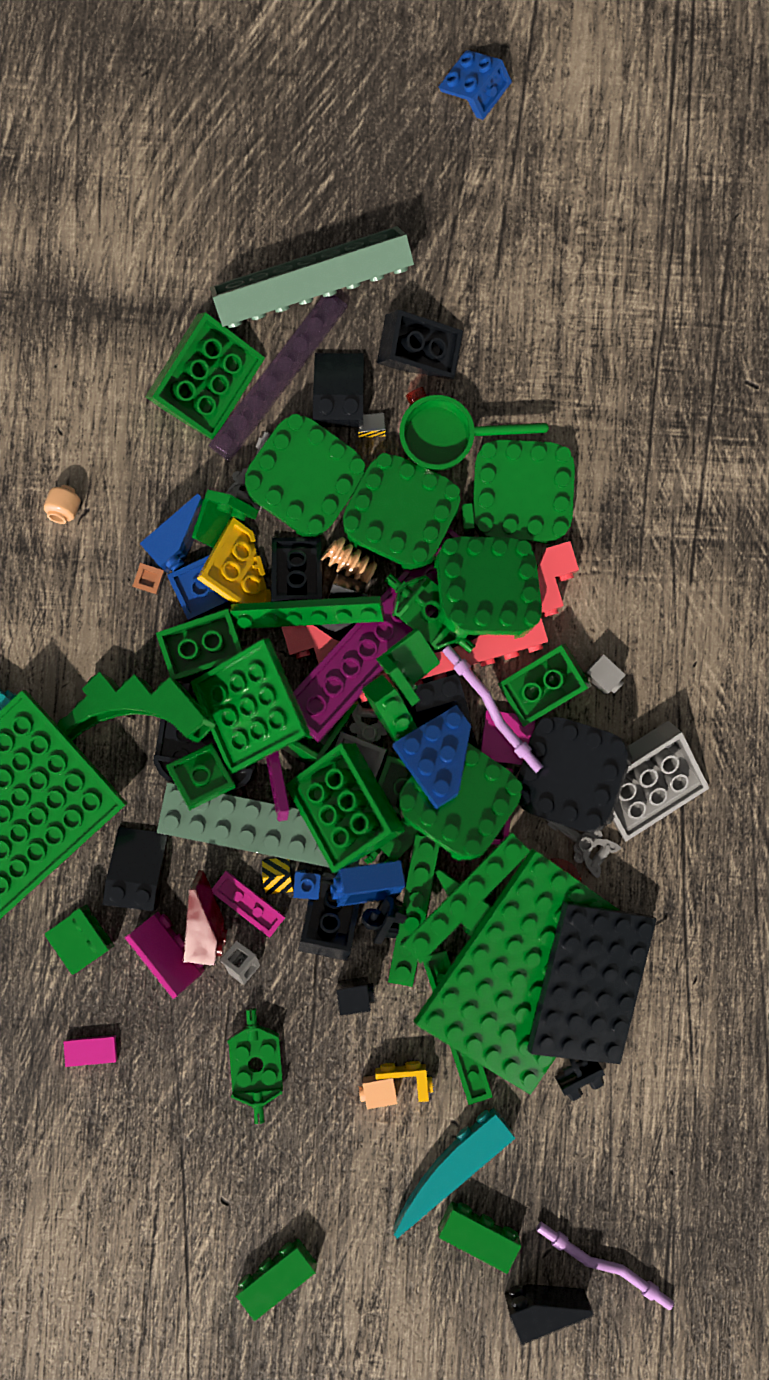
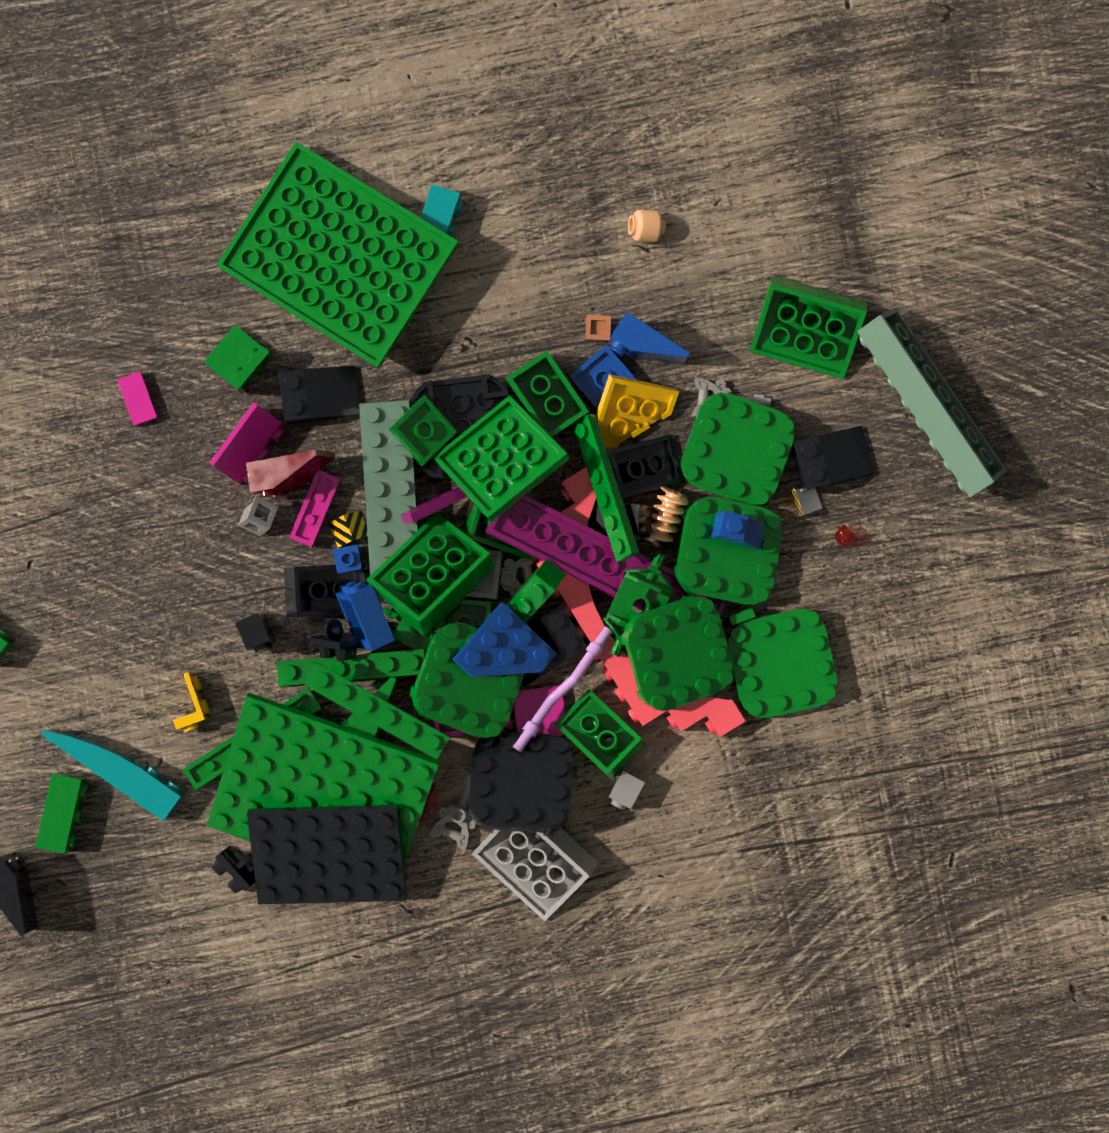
camera: 75 degrees right, 0 degrees up
(136, 696) = (481, 349): green arch -> none
(216, 512) = (675, 374): green bracket -> none
(252, 1085) = (145, 557): green plate -> none
(277, 376) = (827, 396): clear purple plate -> none
(378, 1092) = (171, 680): light nougat brick -> none
(383, 495) = (737, 530): none -> blue slope
(408, 663) = (583, 596): green bracket -> none
(419, 345) = (896, 525): black slope -> none
(441, 432) = (815, 568): green piece -> none
(647, 1288) = (53, 988): lavender bar -> none

